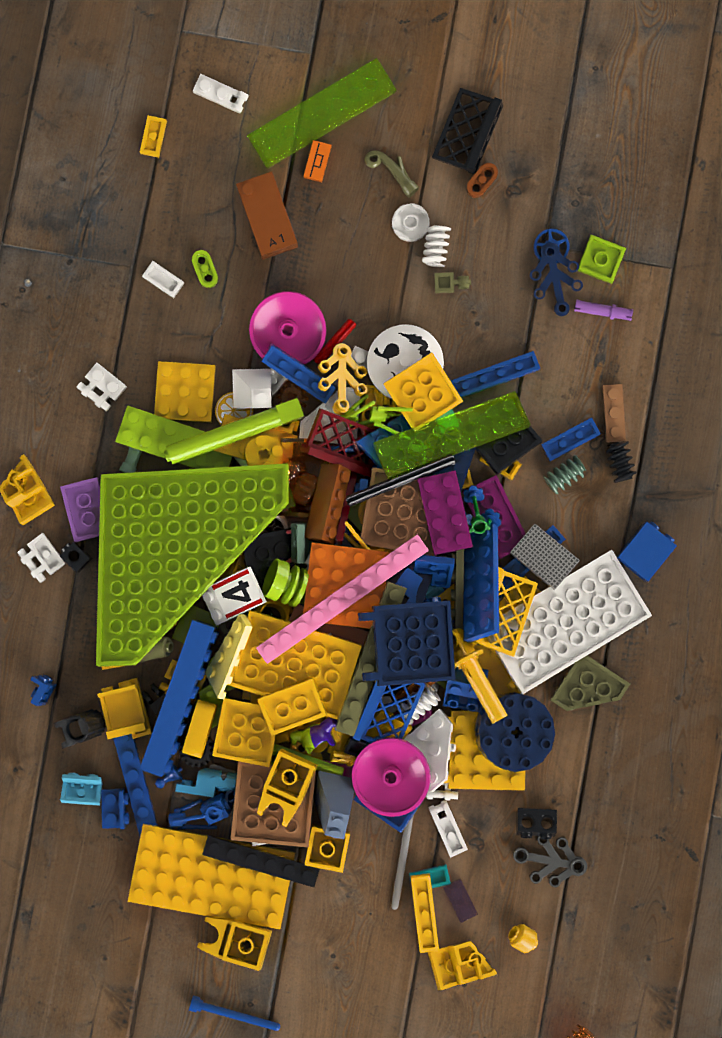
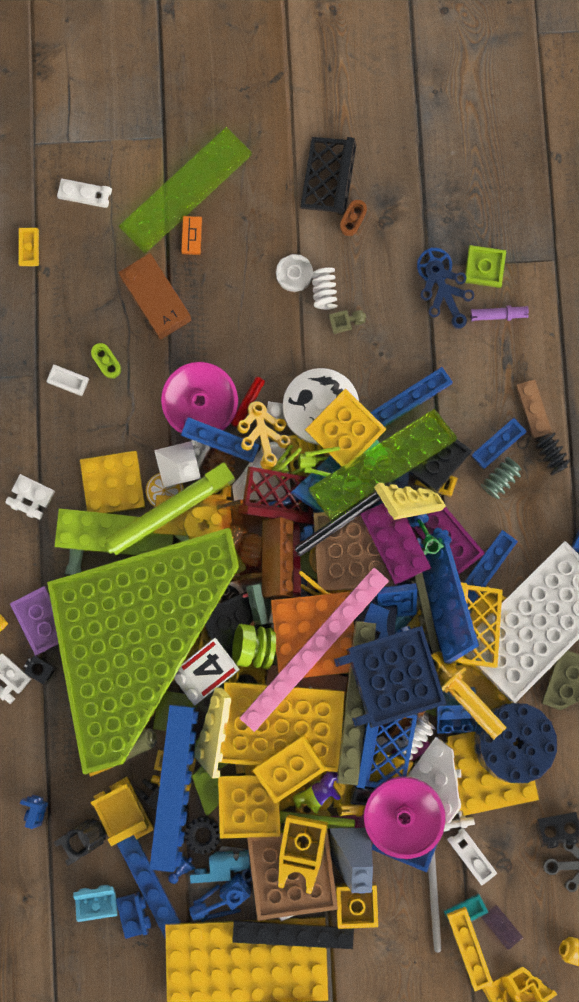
camera: 15 degrees left, 5 degrees down
(199, 728) = (201, 813): yellow beam -> none
(398, 171) = (271, 227): olive plant -> none
(467, 478) = (409, 502): none -> light yellow wing
(544, 556) = (502, 562): light grey tile -> none

